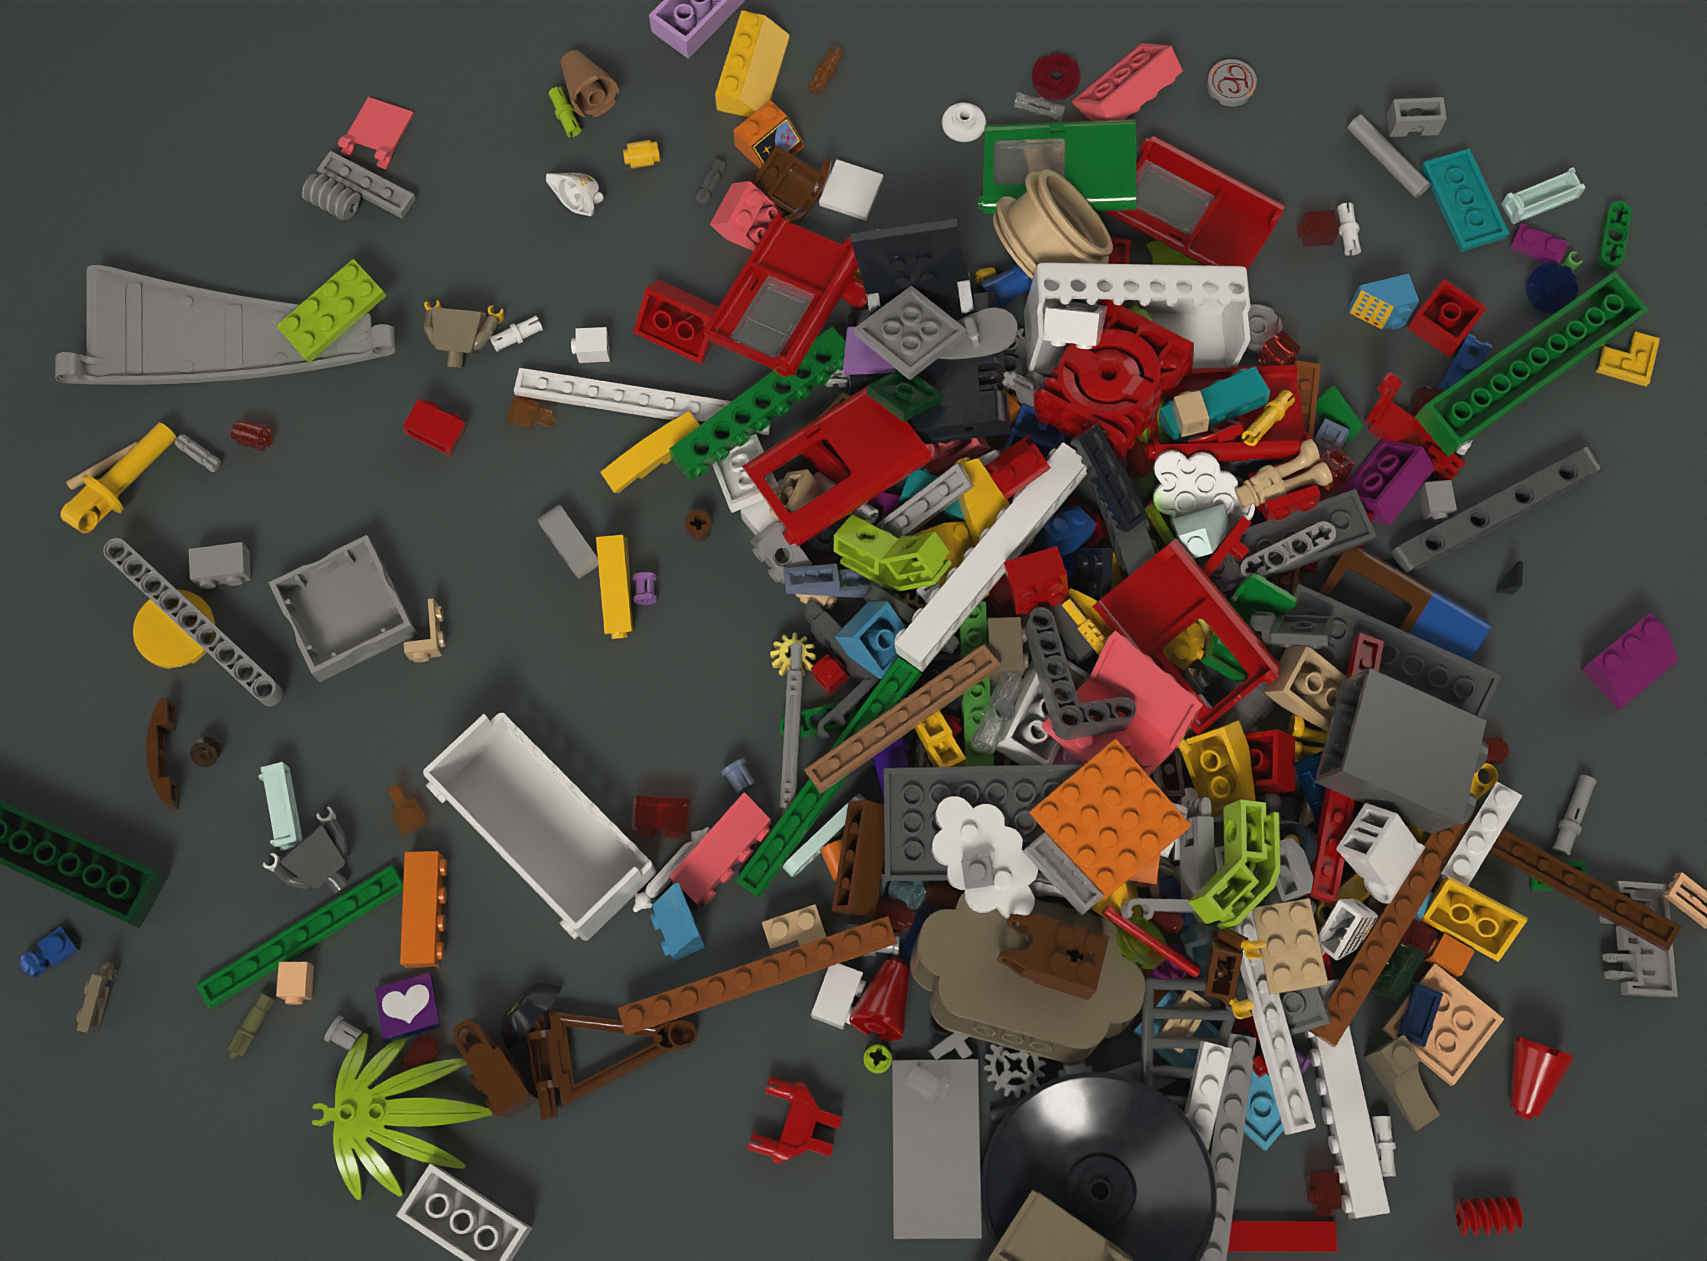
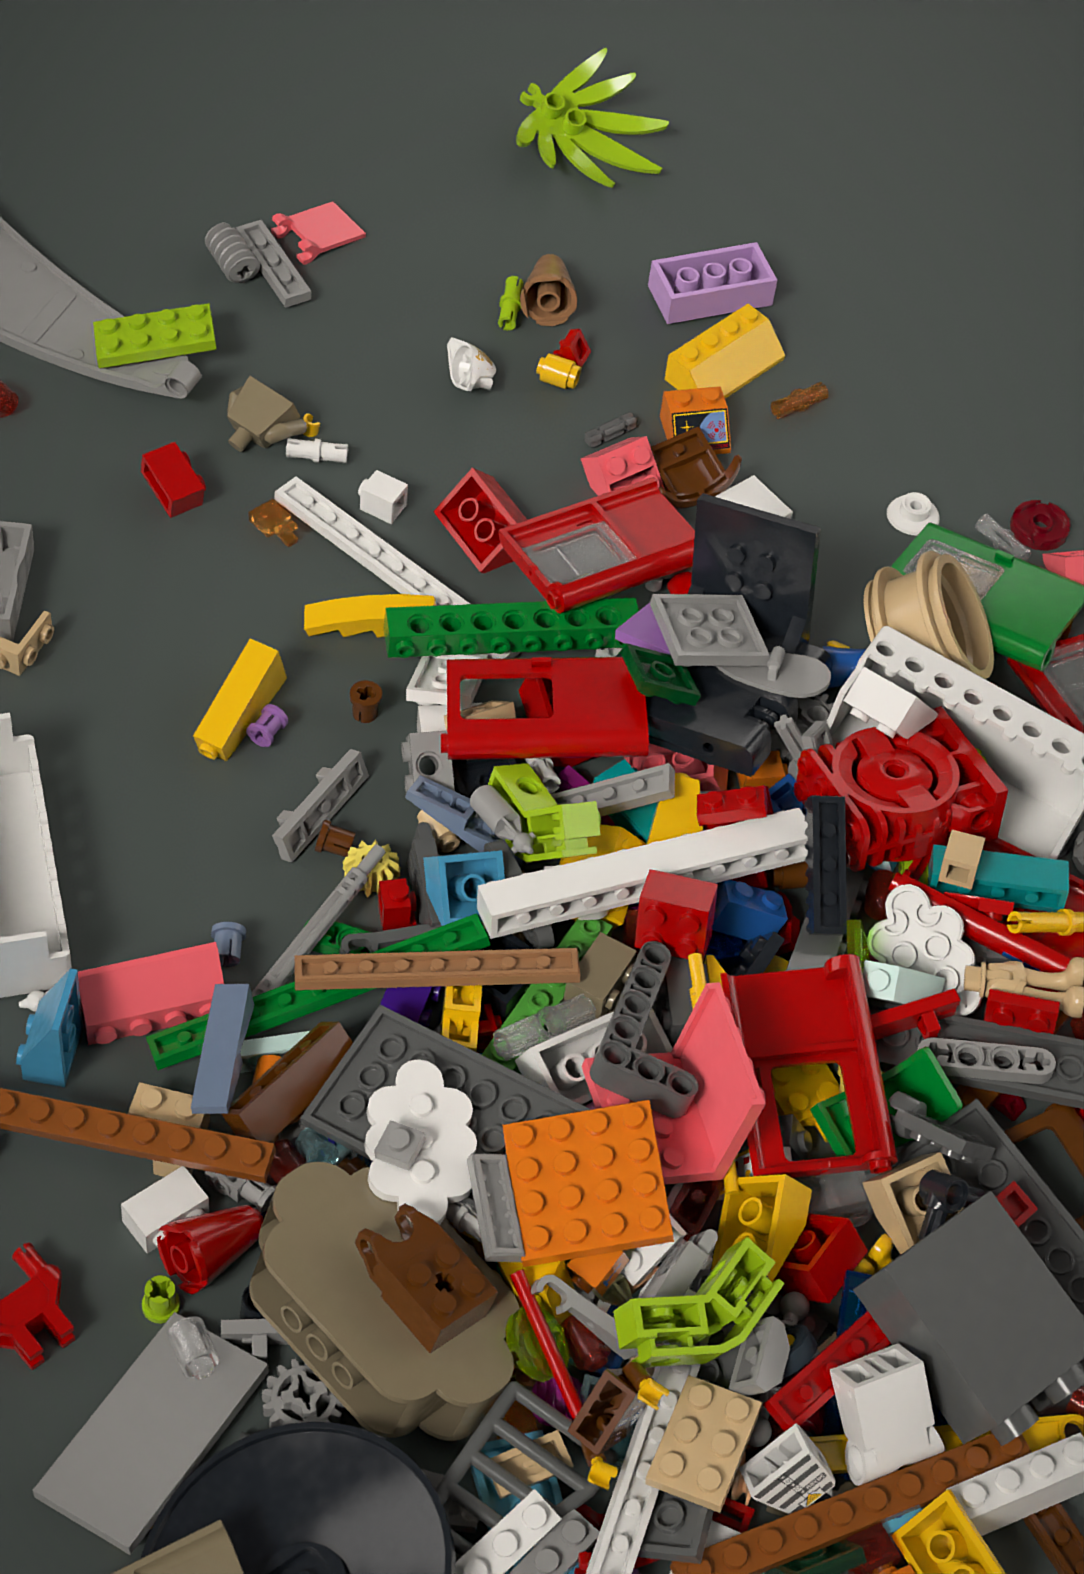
camera: 25 degrees right, 20 degrees down
(568, 541) = (223, 641): light grey beam -> none
(639, 127) = (574, 347): none -> red tile
(661, 816) = (117, 931): clear red brick -> none
(726, 607) = (325, 800): none -> light grey hinge
(753, 649) = (334, 839): none -> reddish brown bush
(800, 865) = (221, 1049): none -> sand blue slope
(867, 572) = (501, 818): none -> light grey wheel
(1034, 373) = (816, 736): none -> light grey tile
(1329, 677) = (944, 1195): none -> black axle

